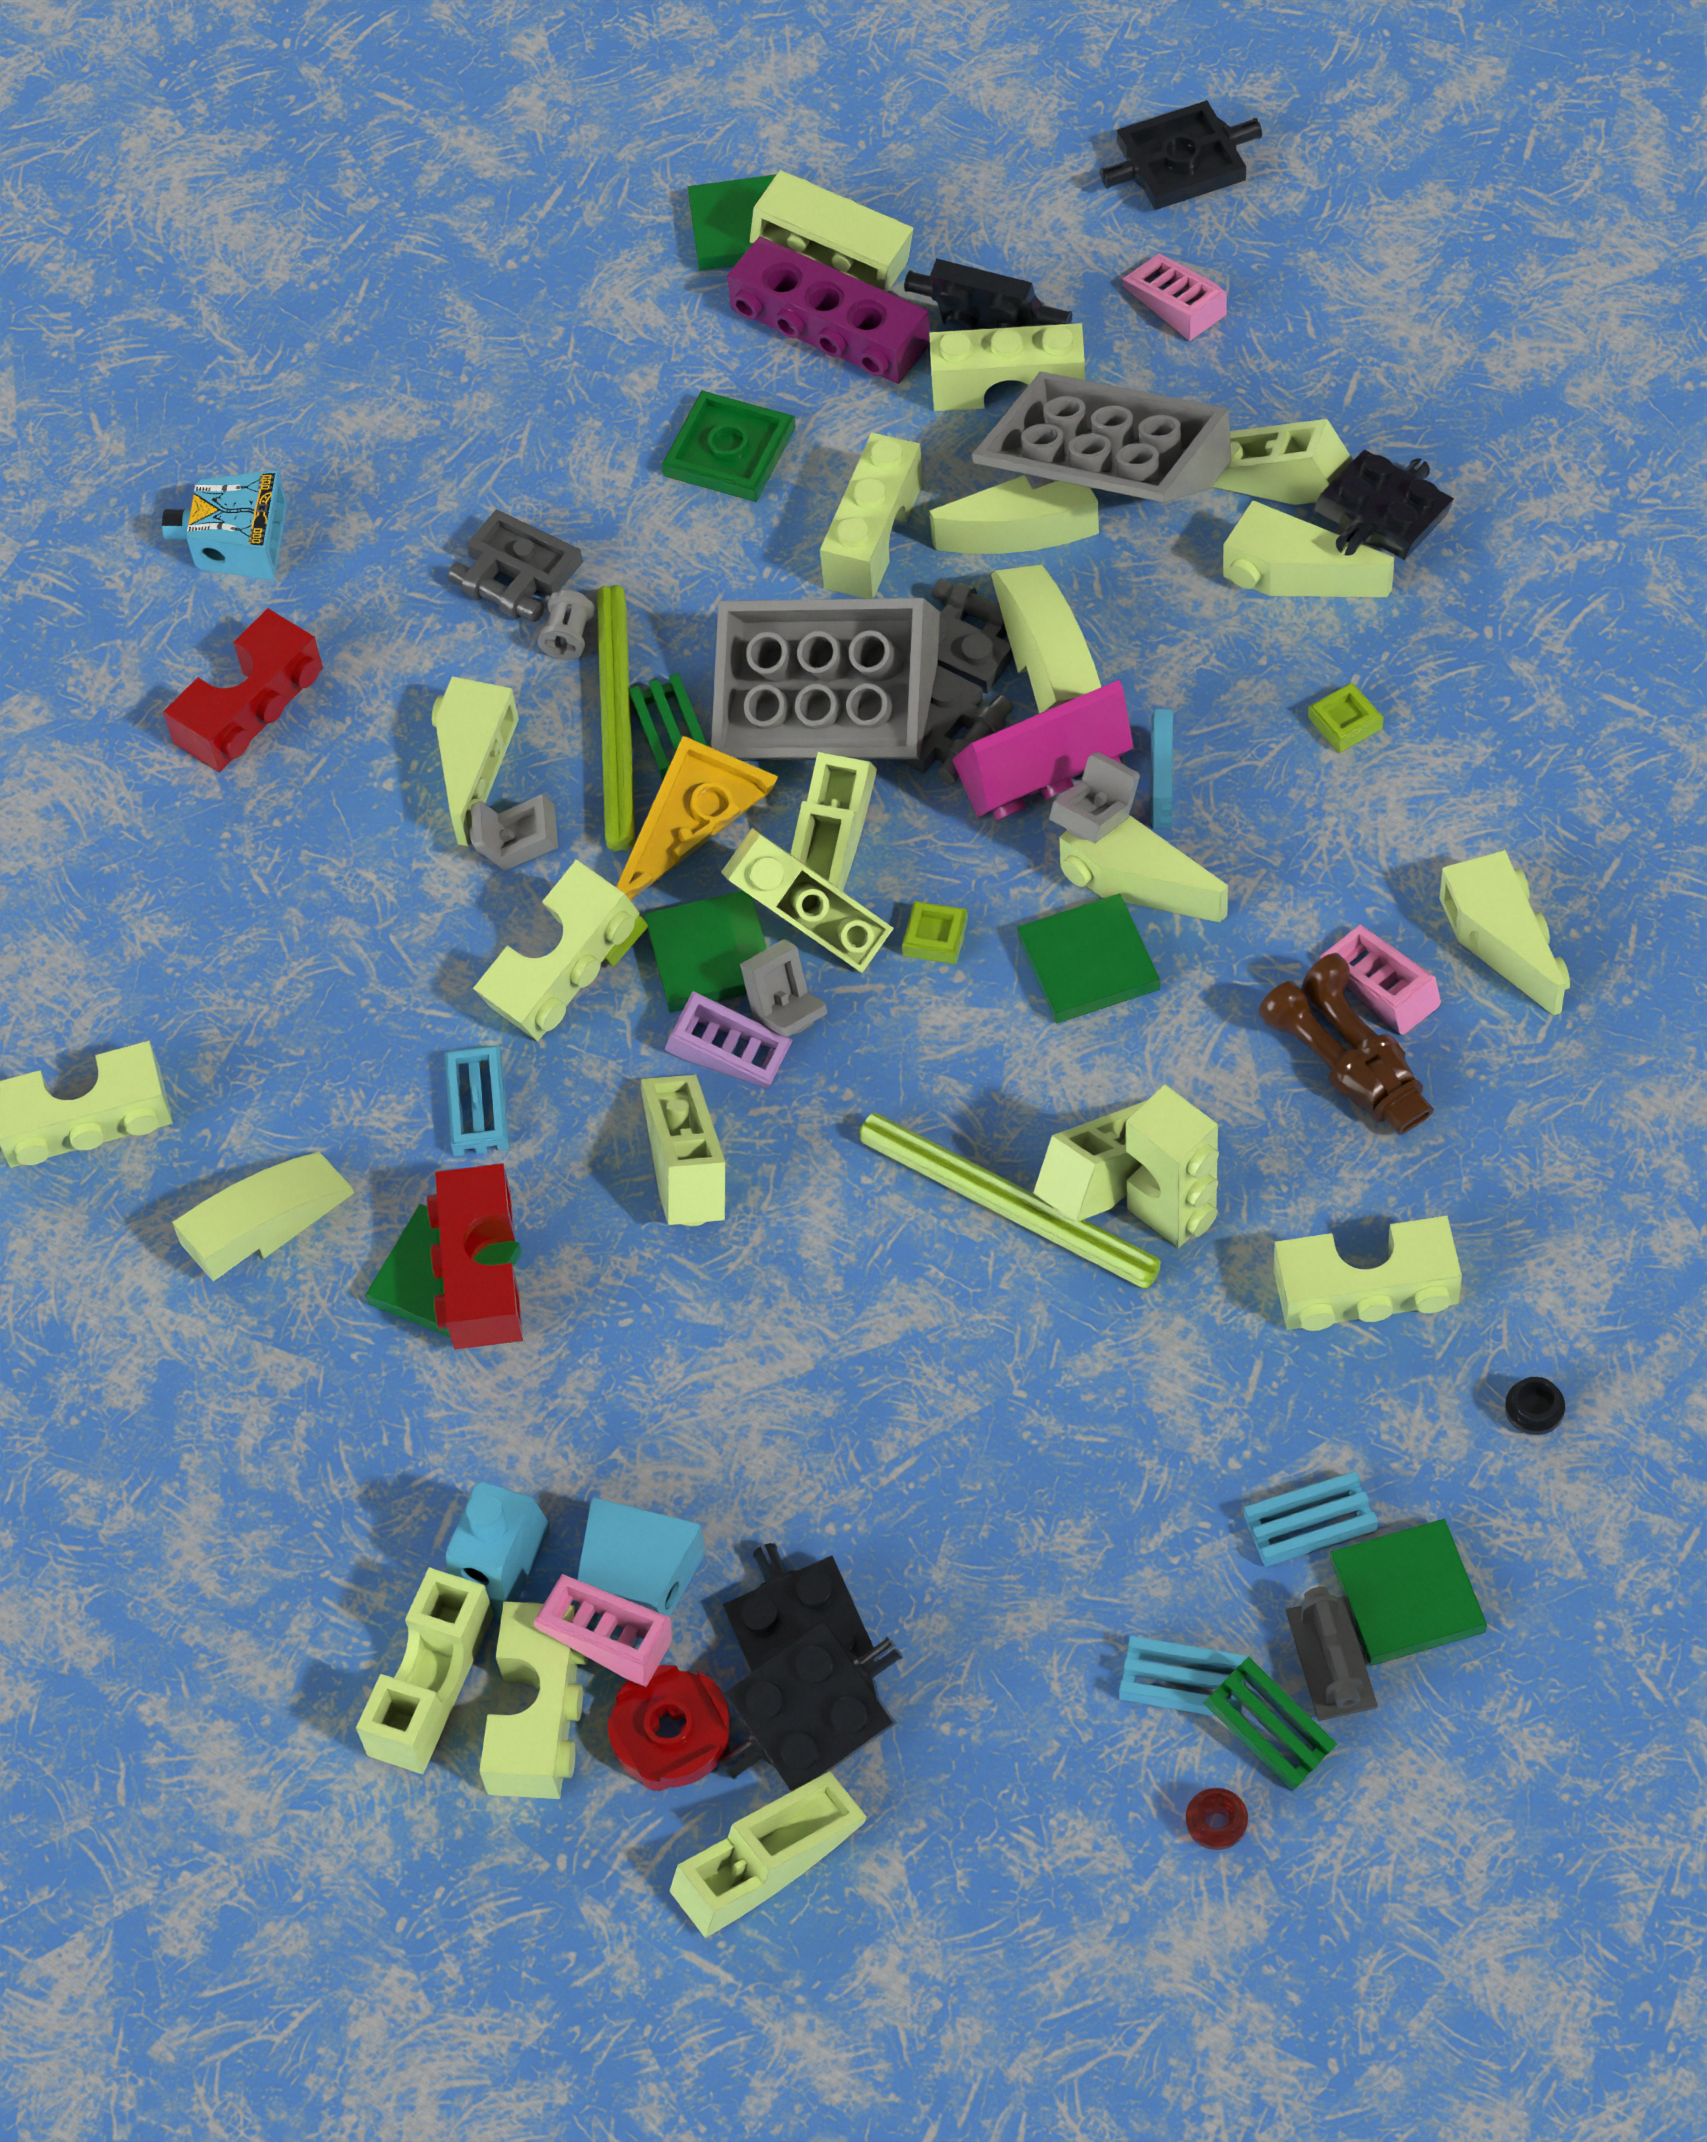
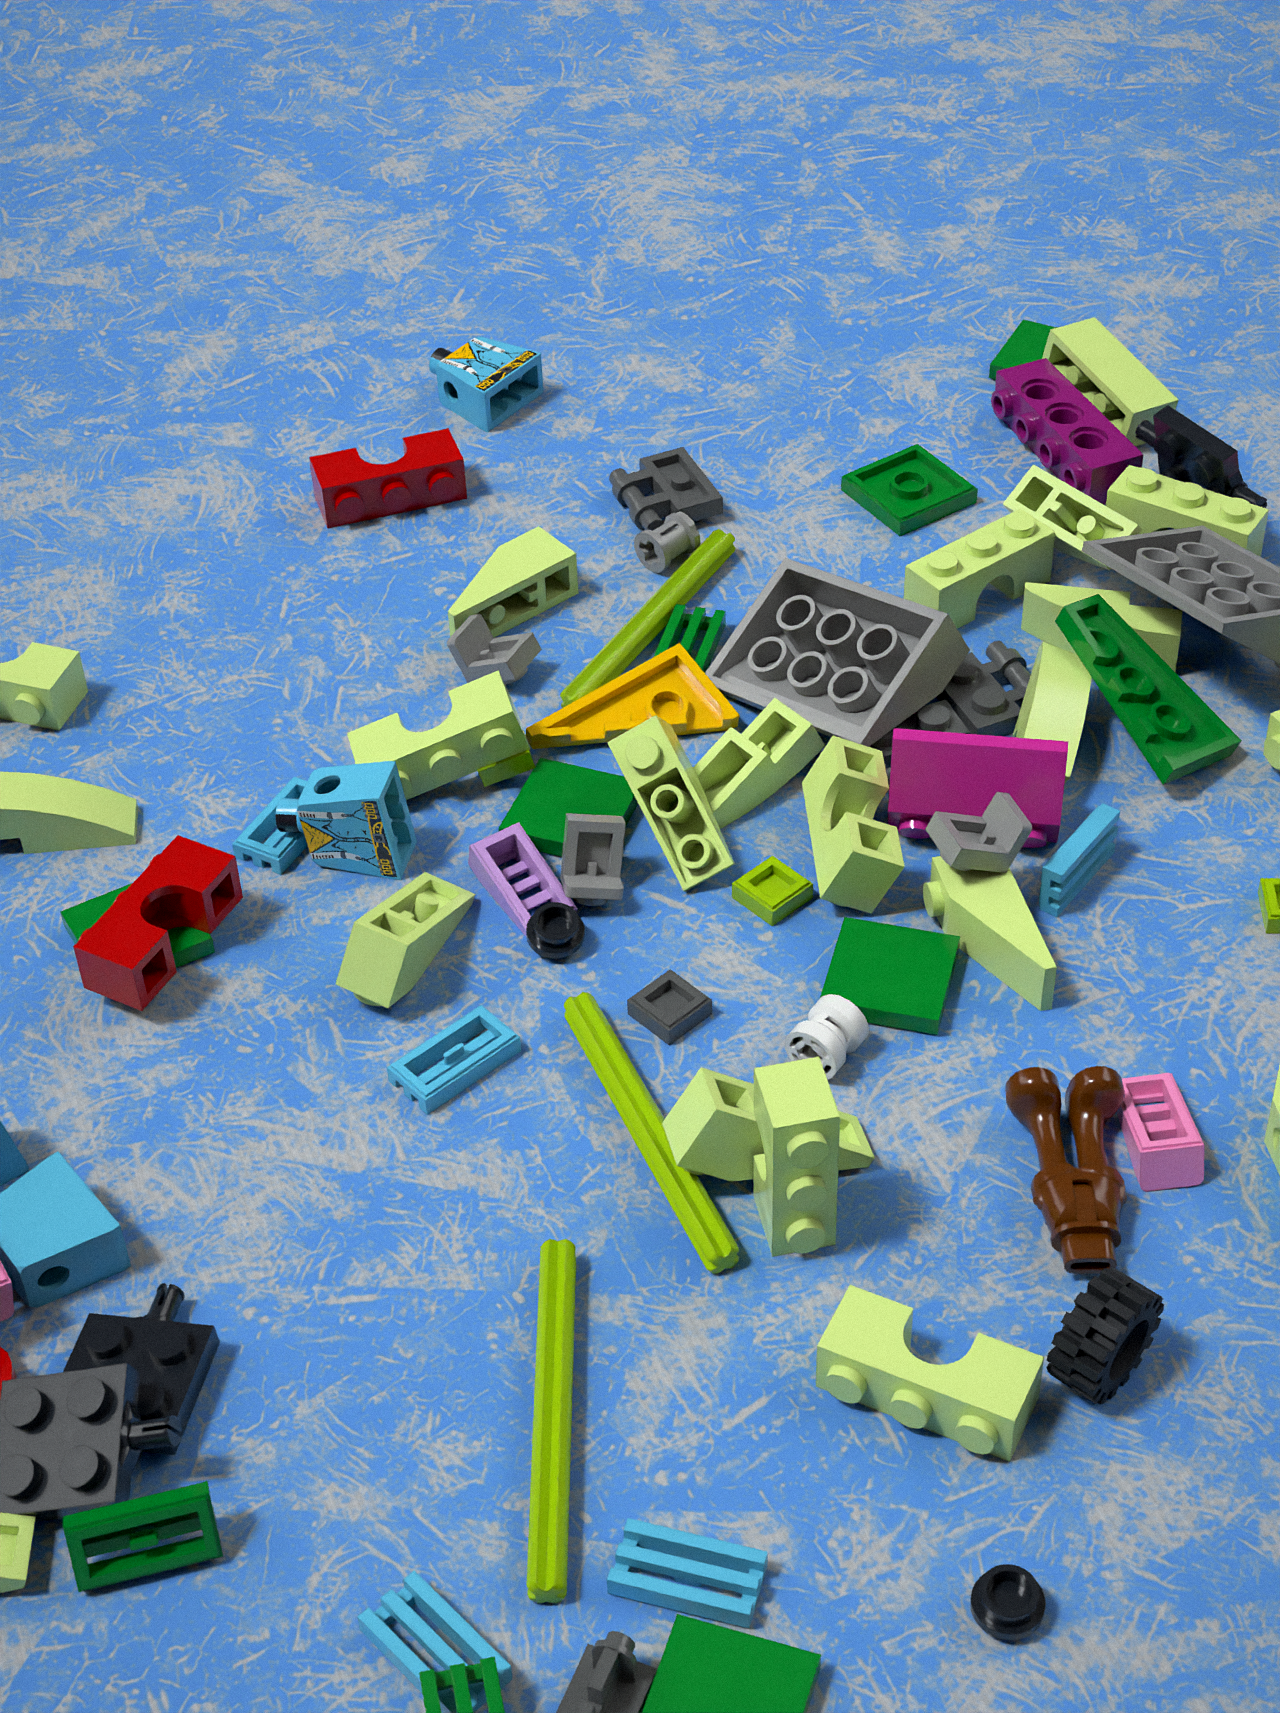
camera: 30 degrees right, 15 degrees down
(548, 1068) = (353, 819): none -> medium azure torso
(796, 1072) = (555, 930): none -> black plate
(799, 1270) = (461, 1063): none -> medium azure tile
(921, 418) = (1068, 513): none -> yellowish green slope
(923, 1733) = (141, 1525): none -> green tile
(939, 1086) = (669, 1007): none -> dark grey tile
(990, 870) = (851, 851): none -> yellowish green arch
(1089, 1048) = (830, 1033): none -> white wheel
(1111, 576) = (1153, 703): none -> green wing
(1127, 1466) = (552, 1424): none -> lime axle
(1474, 1173) = (1104, 1335): none -> black tyre

